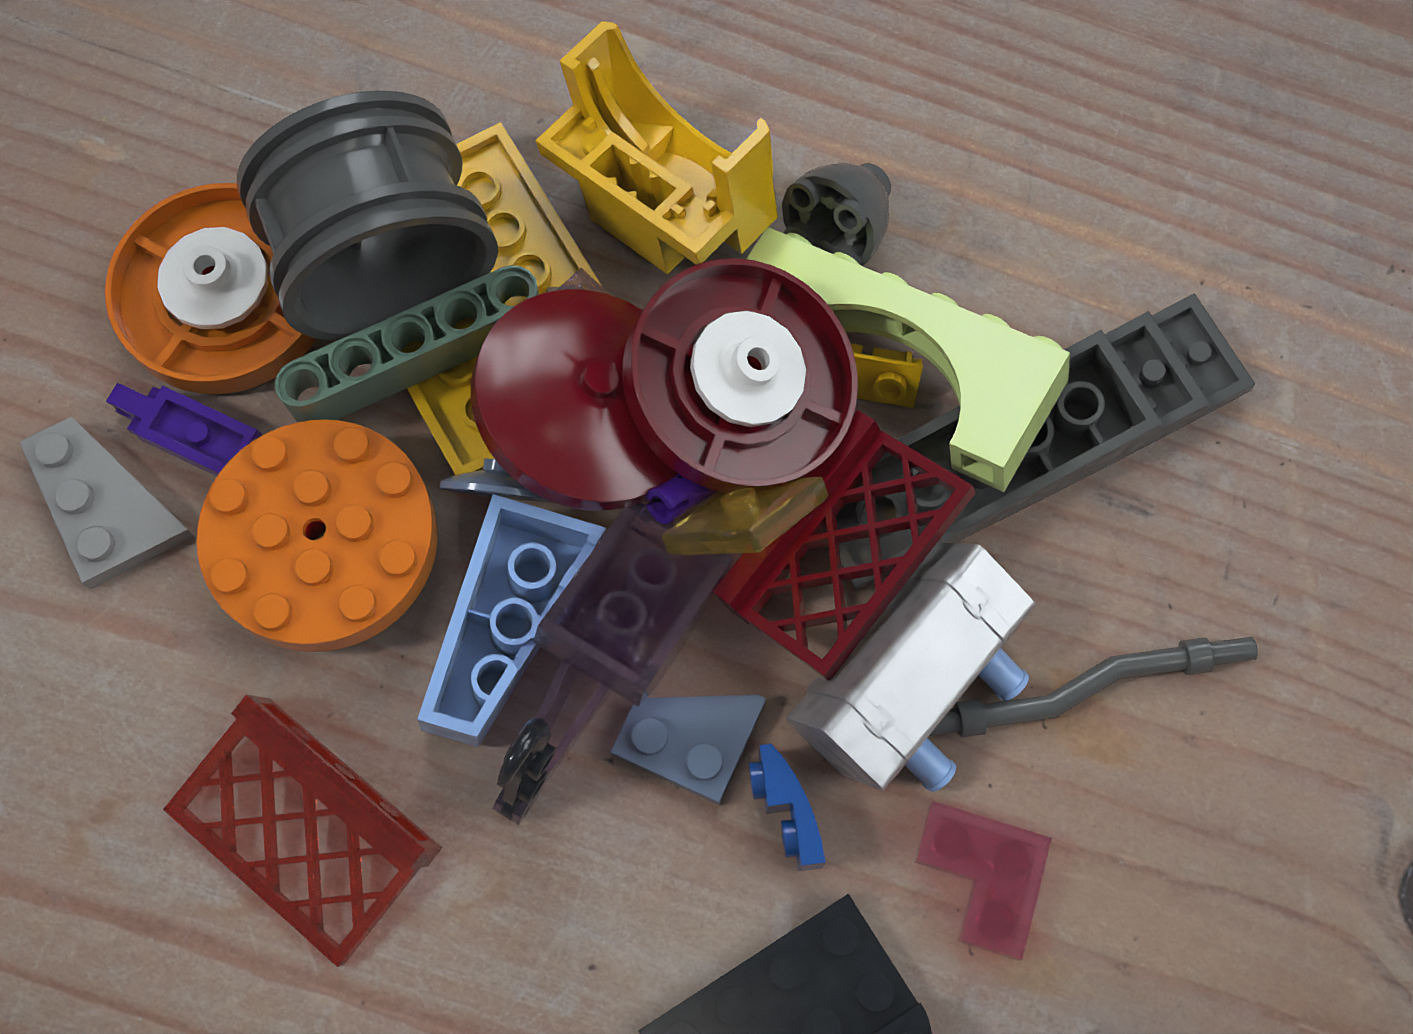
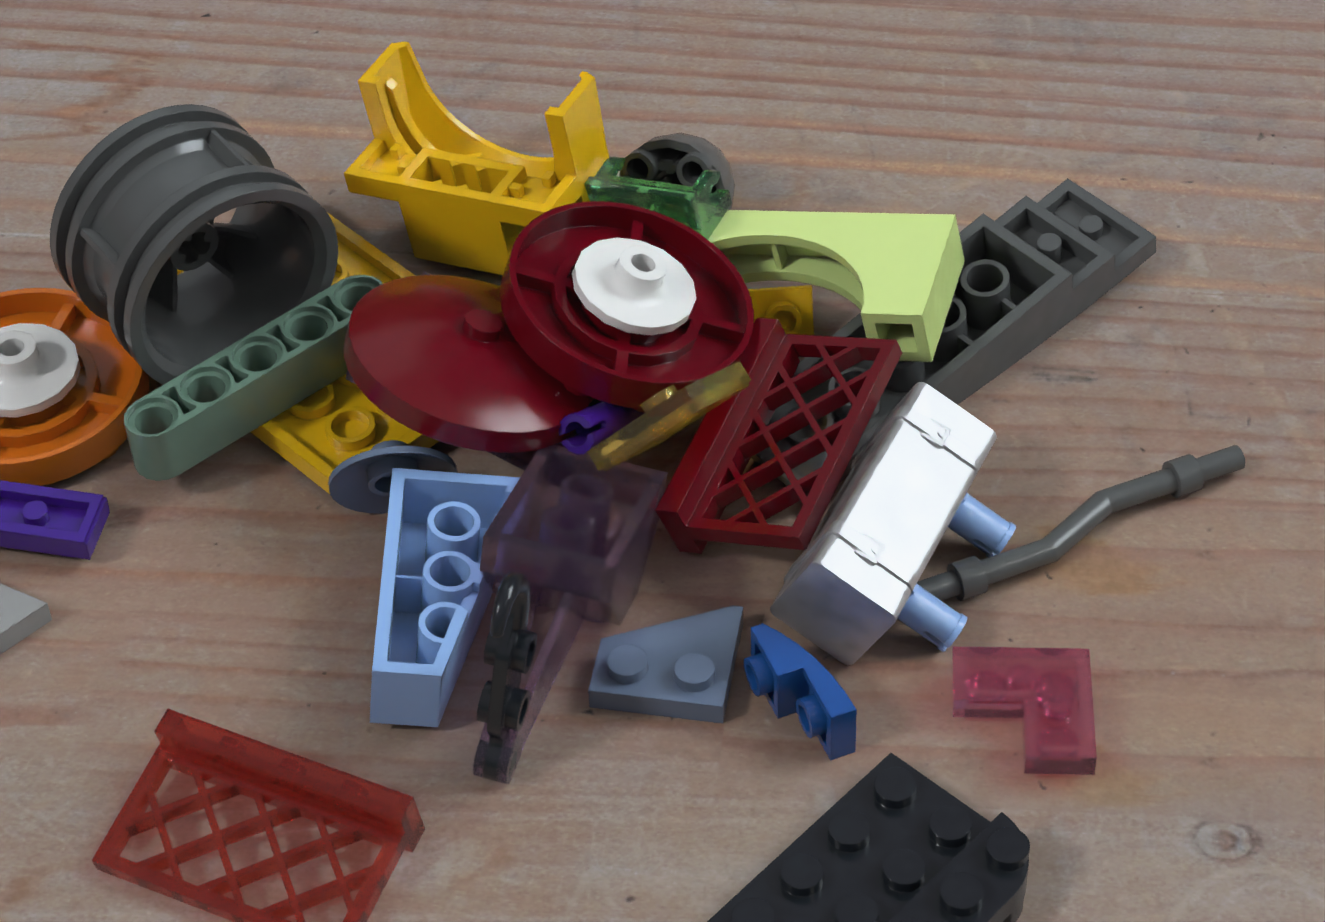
camera: 15 degrees left, 25 degrees down
(317, 535) = (204, 561): orange piece -> none
(806, 247) = (687, 204): none -> clear green hinge

